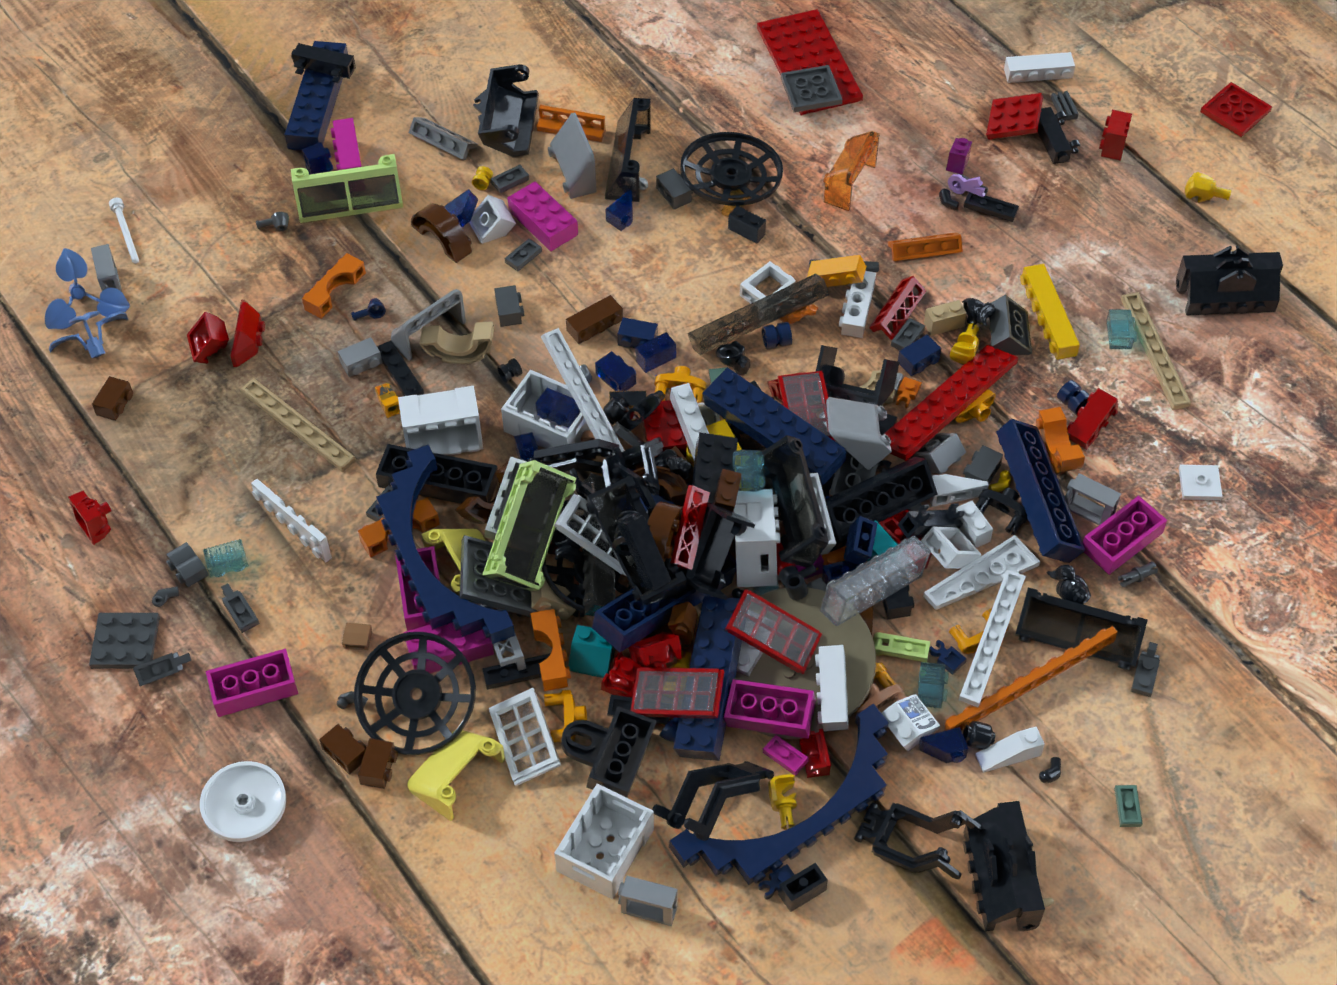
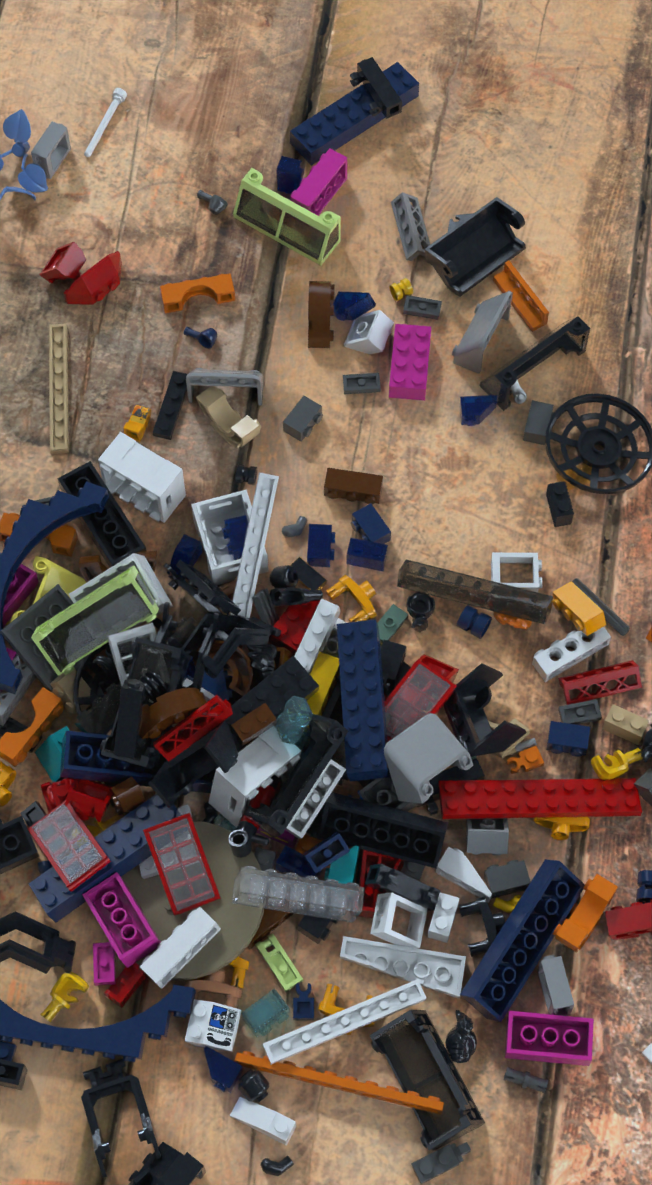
camera: 45 degrees right, 10 degrees up
(360, 357) = (153, 370): light grey brick -> none

